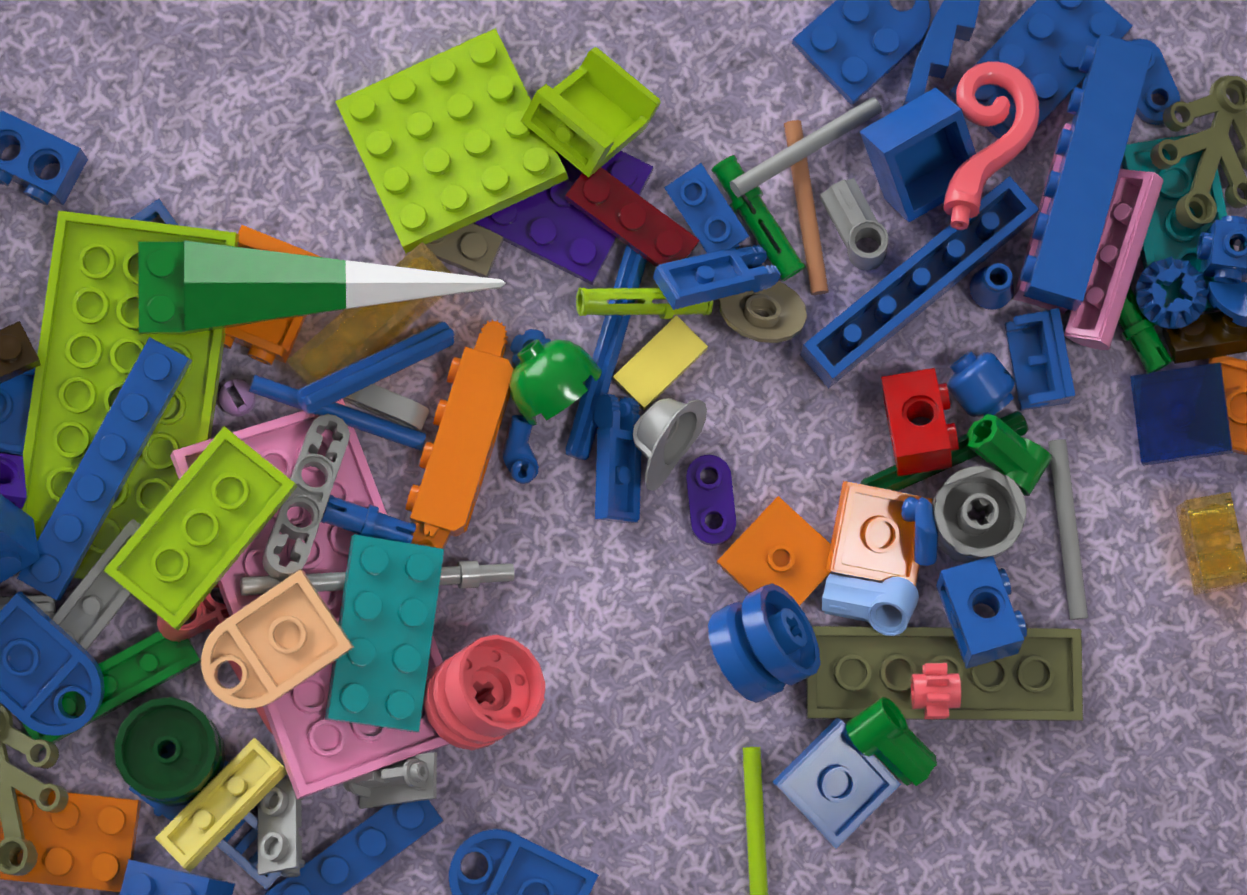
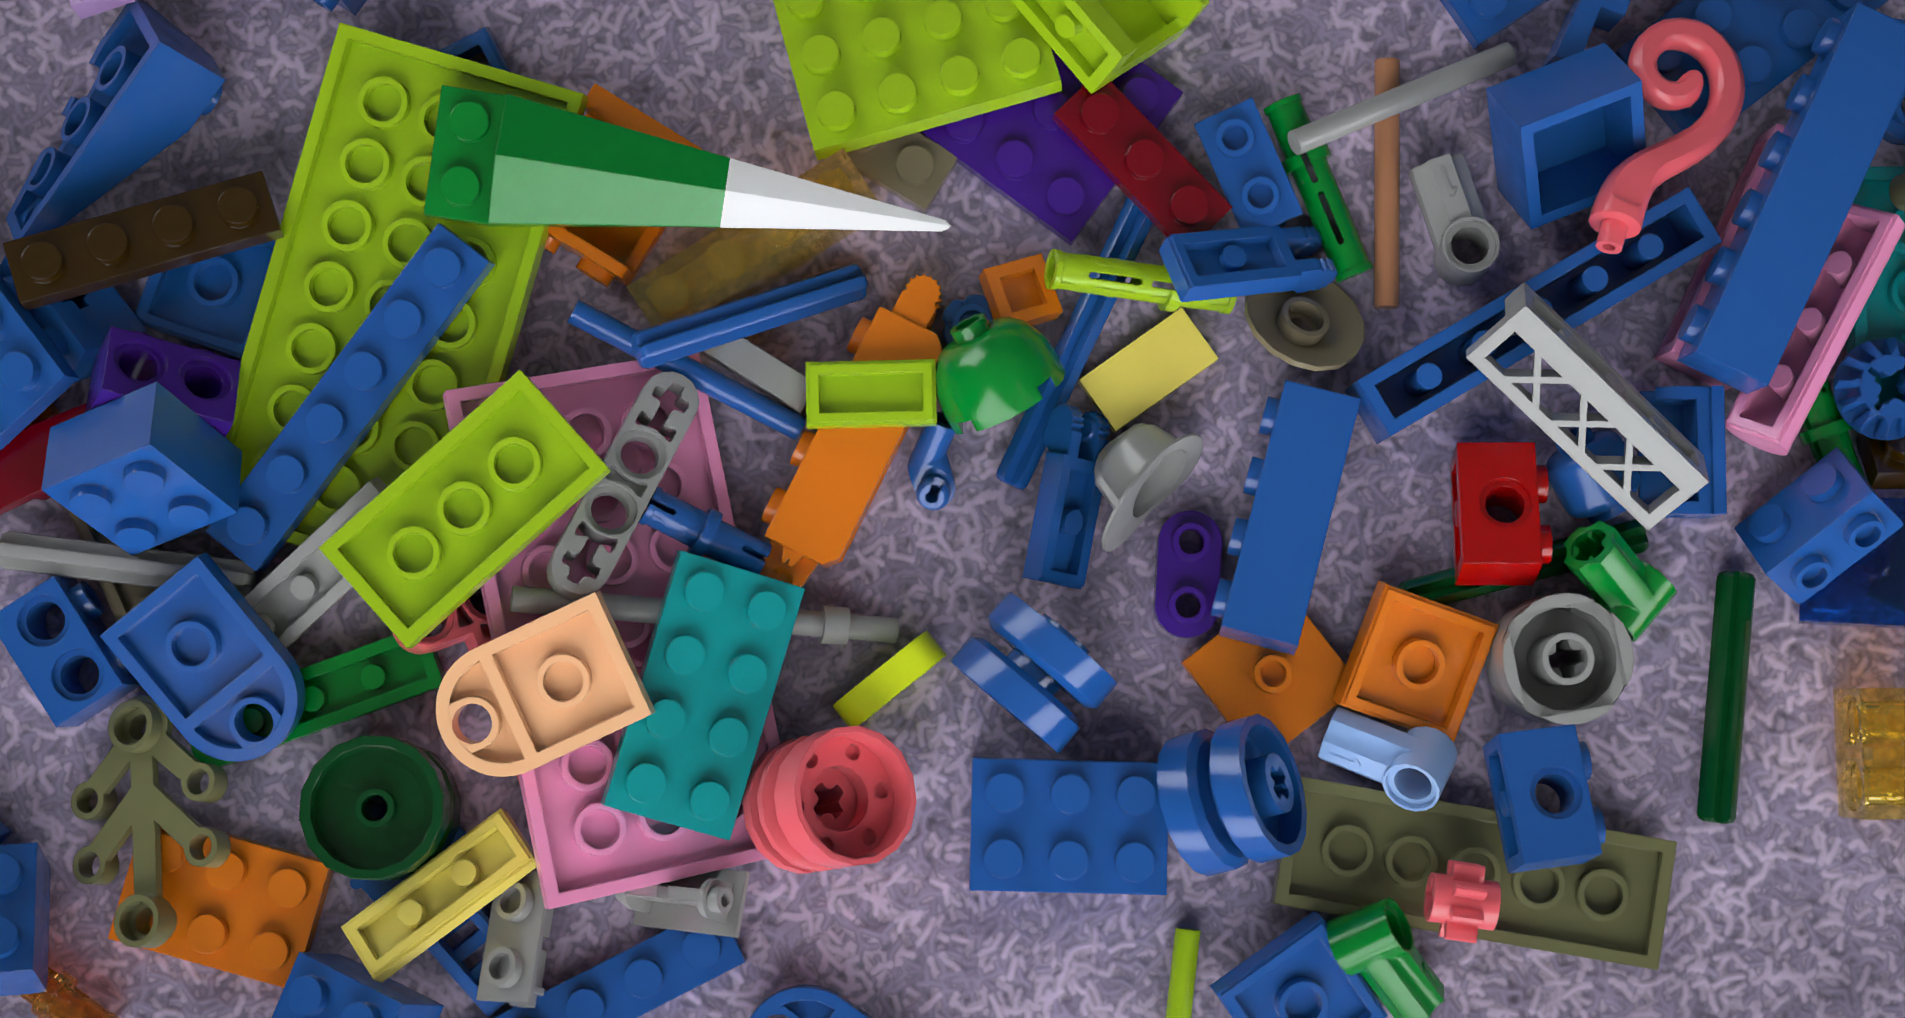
camera: 10 degrees right, 5 degrees up
(227, 402) = (538, 330): lavender hinge -> none
(468, 407) = (871, 394): none -> lime tile
(514, 604) = (889, 680): none -> neon yellow beam
(561, 321) = (1020, 291): none -> orange plate
(615, 575) = (1038, 665): none -> blue wheel
(653, 686) = (1066, 826): none -> blue brick
(773, 447) = (1288, 517): none -> blue brick
(925, 529) = (1485, 669): blue arm -> none
(973, 322) = (1607, 391): none -> fence
(987, 293) = (1622, 344): blue cone -> none
(1068, 530) = (1678, 697): light grey bar -> none
(1100, 524) = (1726, 697): none -> dark green axle
(1140, 395) = (1818, 526): none -> blue bracket

